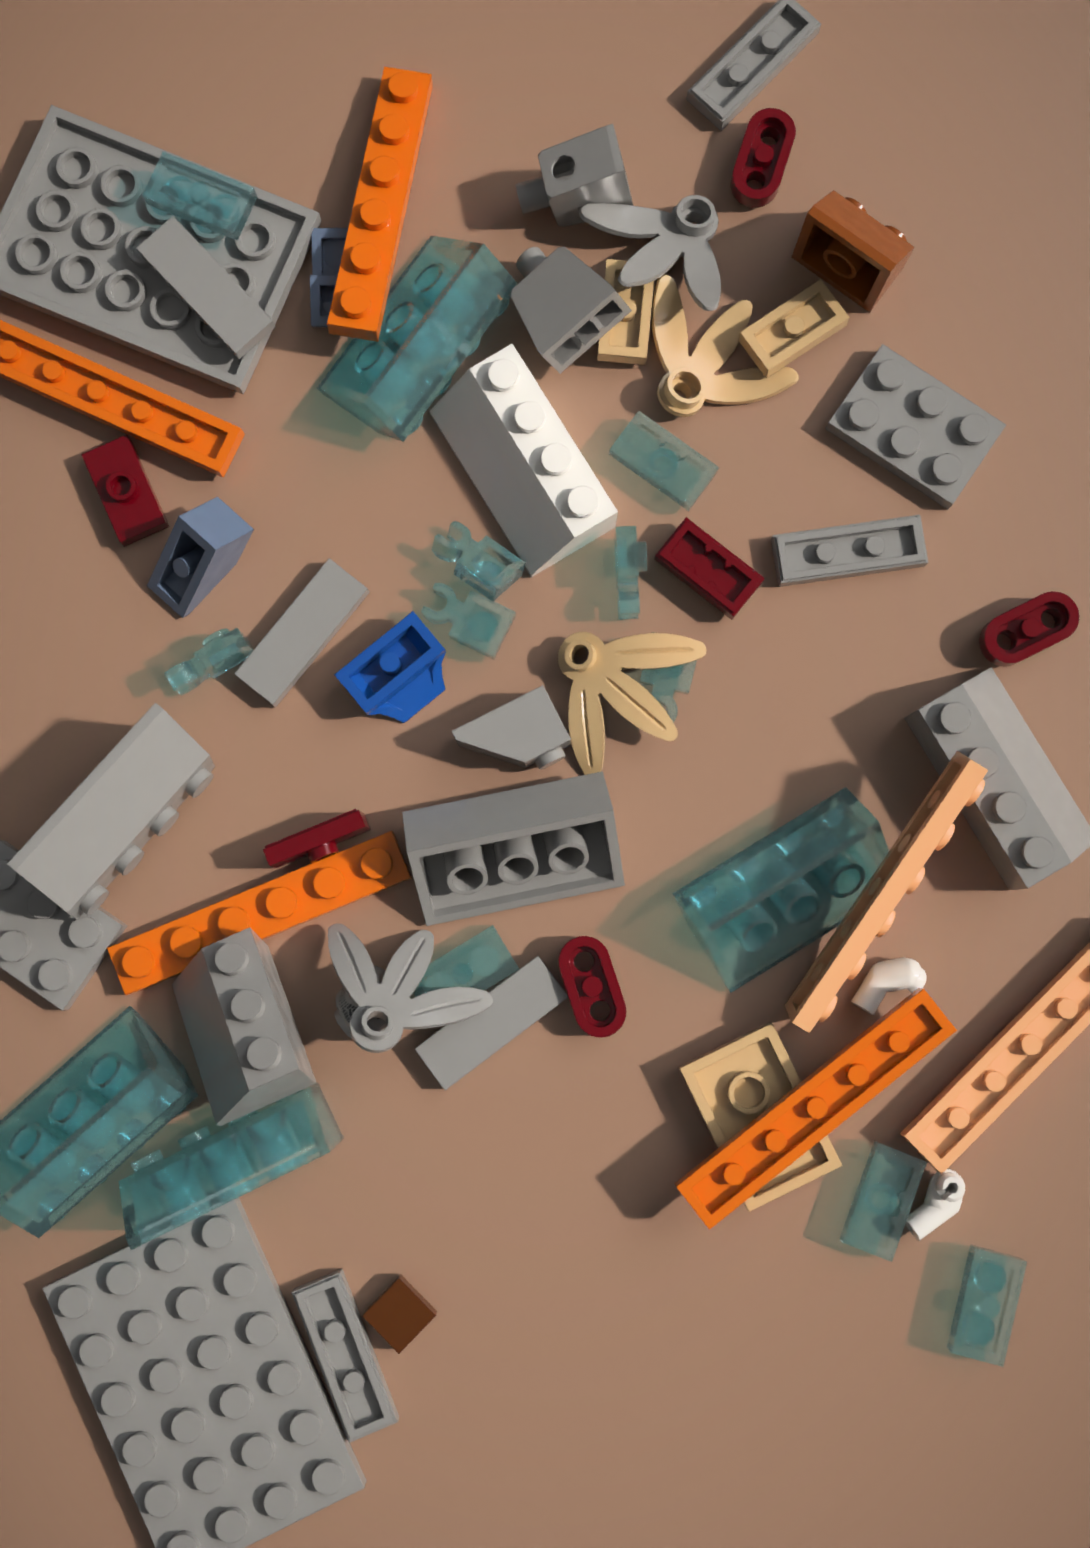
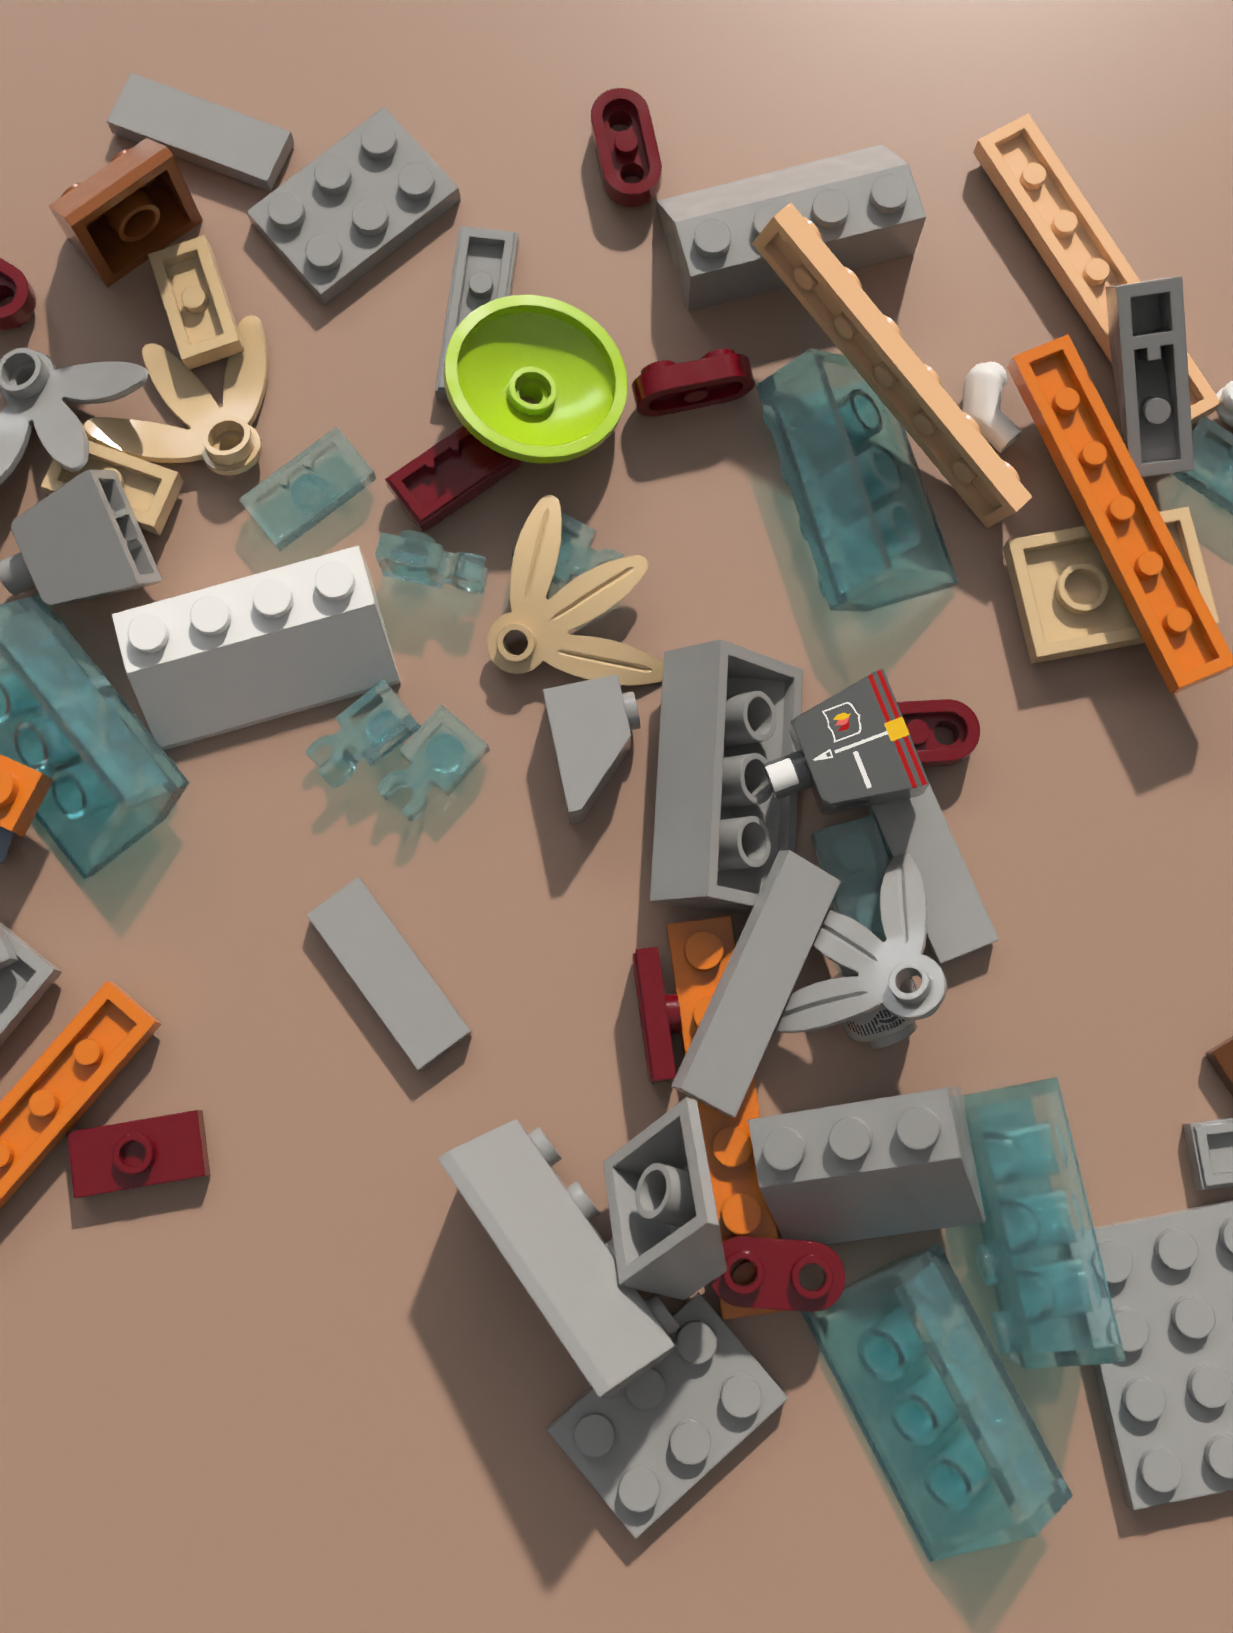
camera: 75 degrees left, 5 degrees down
(150, 976) = (777, 1274): none -> dark red plate
(168, 882) = (665, 1207): none -> light grey slope
(199, 555) = (254, 1076): sand blue slope -> none
(219, 654) = (386, 1079): clear light blue plate -> none
(357, 908) = (756, 984): none -> light grey tile
(397, 671) = (472, 866): blue slope -> none
(555, 935) = (851, 751): none -> dark grey torso
(827, 718) = (693, 384): none -> dark red plate
(828, 604) = (538, 352): none -> lime dish
(941, 1107) = (1152, 373): none -> light grey slope
(943, 287) = (201, 131): none -> light grey tile

